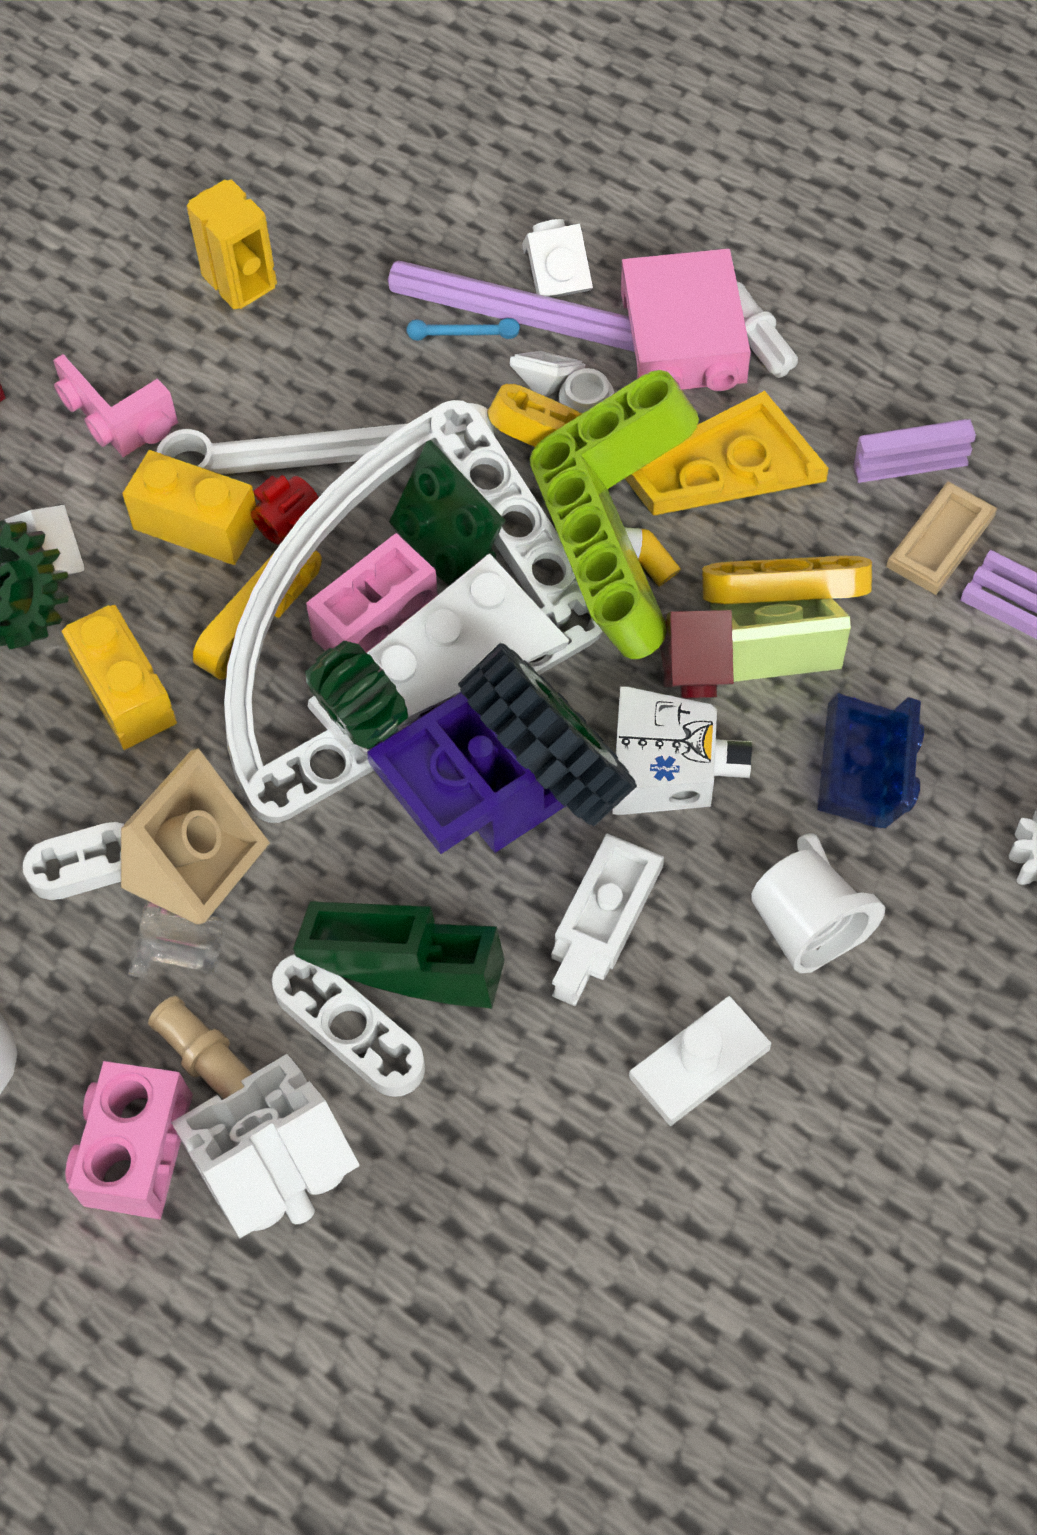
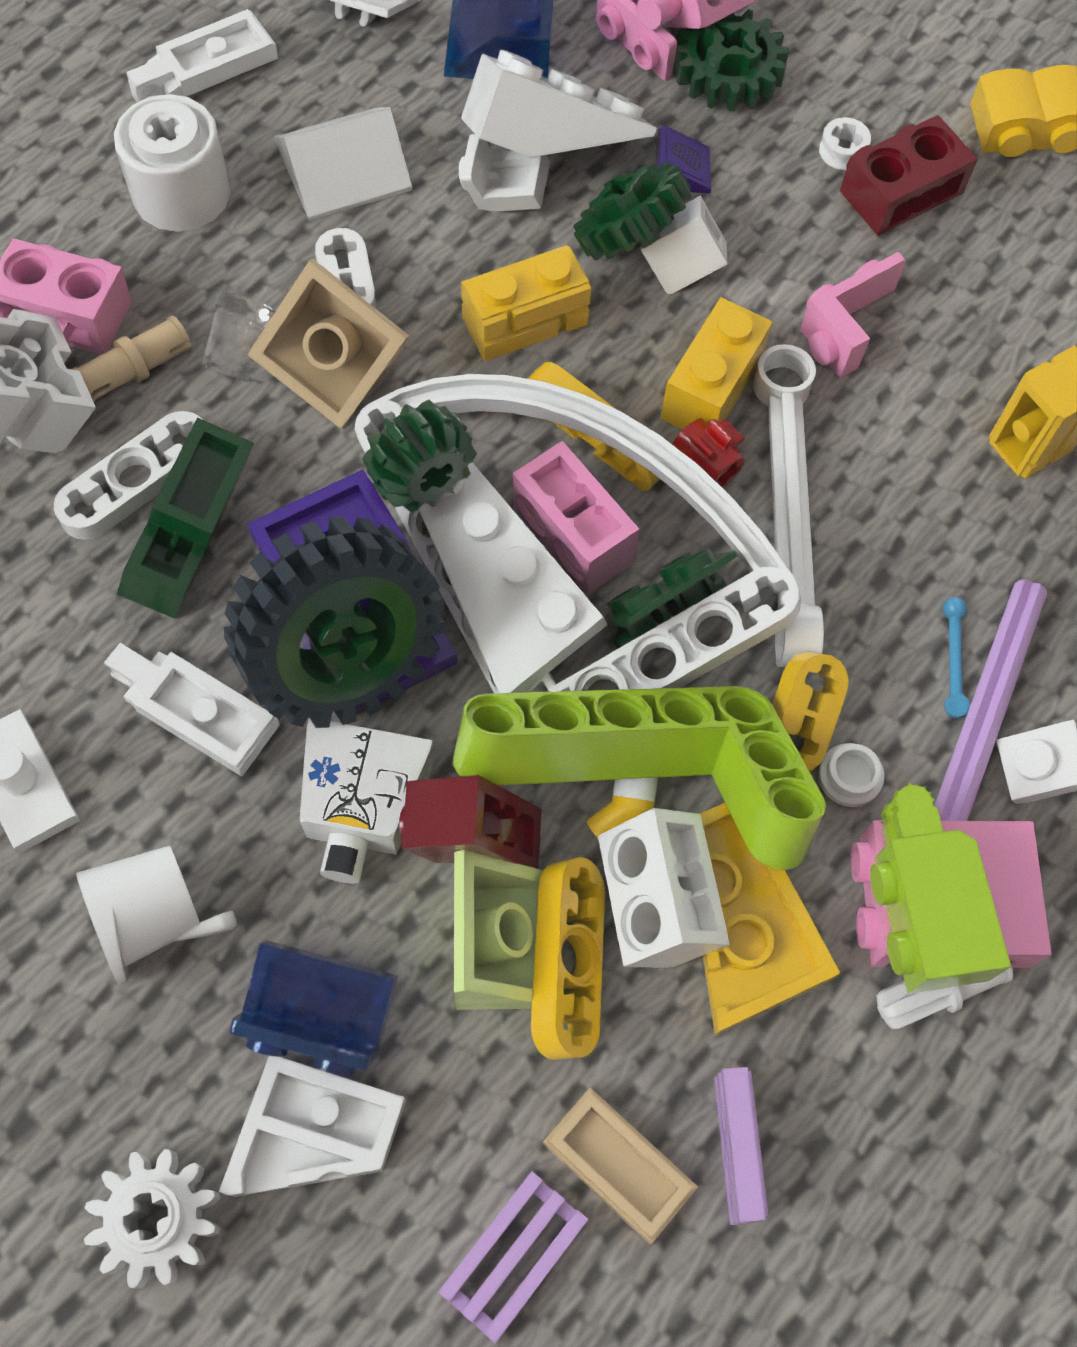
camera: 90 degrees right, 5 degrees up
(544, 370) = (891, 732): white slope -> none
(707, 309) = (935, 899): none -> lime hinge
(721, 494) = (662, 889): none -> white brick
(968, 753) = (310, 1130): none -> white wing

